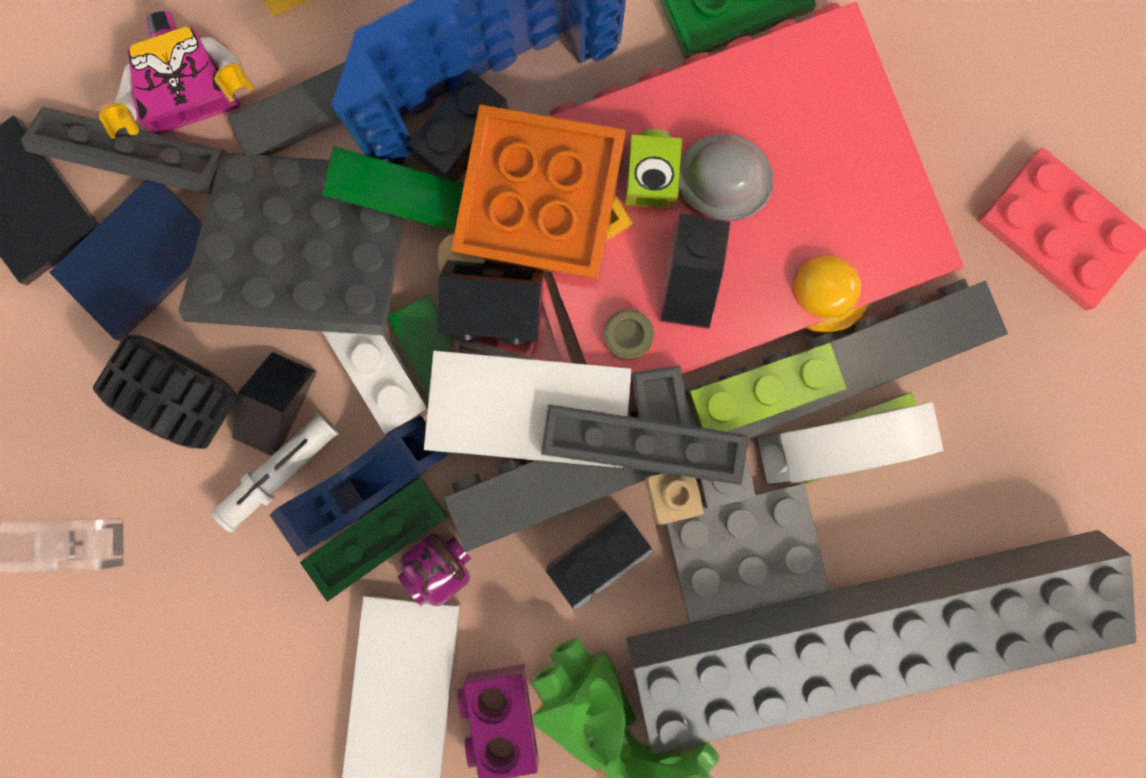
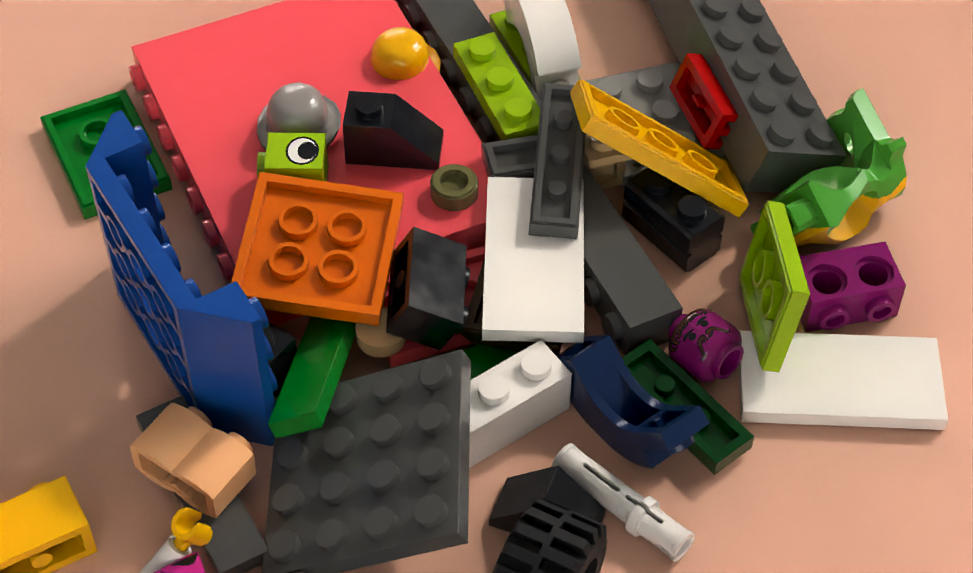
camera: 90 degrees left, 35 degrees down
(310, 86) = (194, 458): none -> light nougat brick
(472, 646) = (773, 286): none -> lime tile
(657, 546) = (657, 147): none -> yellow tile
(740, 611) = (707, 97): none -> red tile

